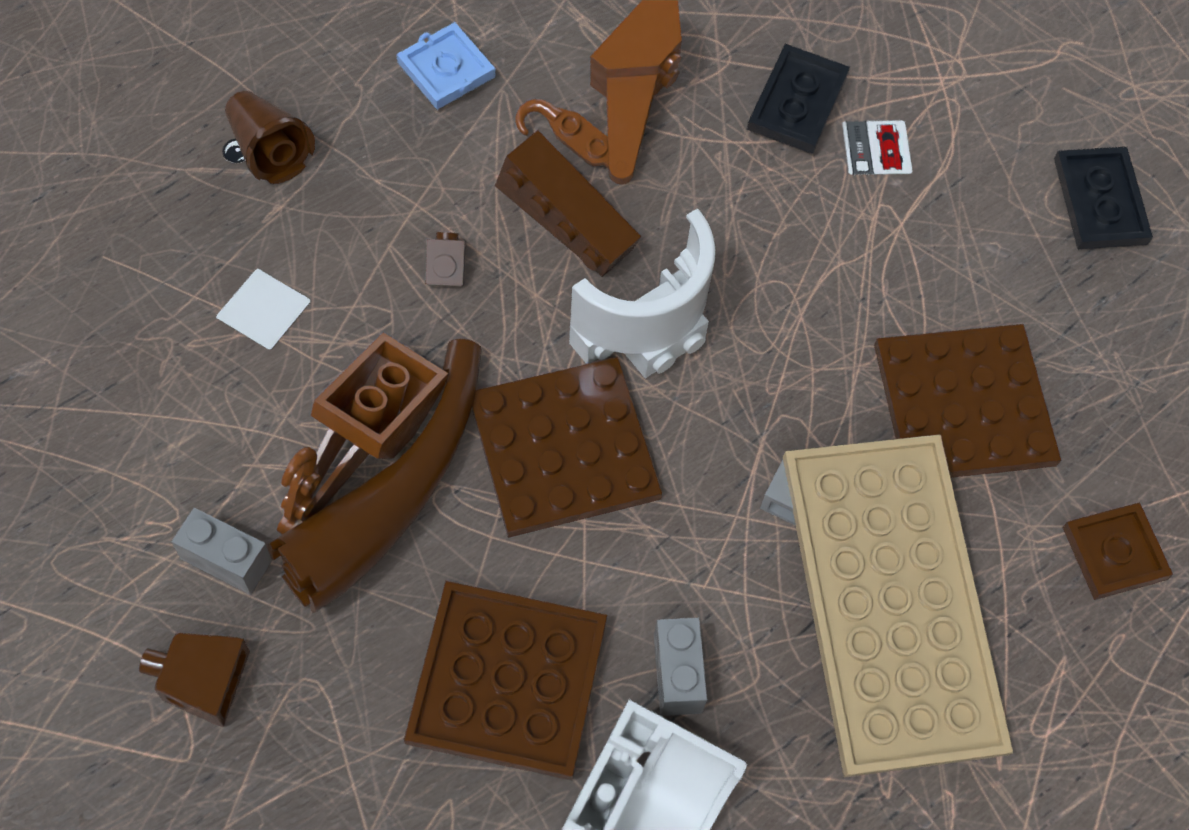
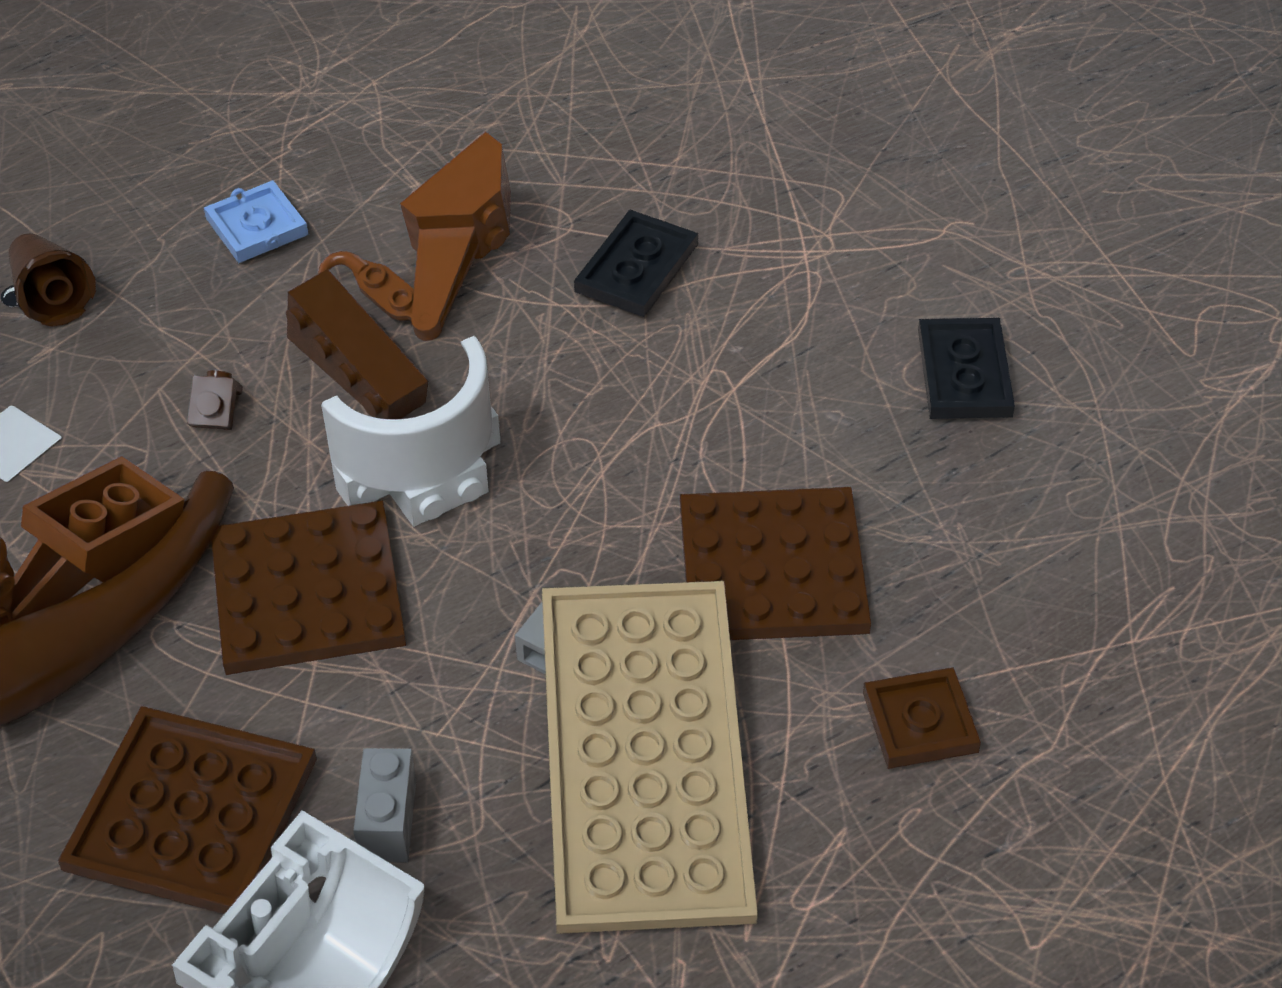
camera: 10 degrees right, 15 degrees down
(877, 147) = (720, 315): sticker -> none

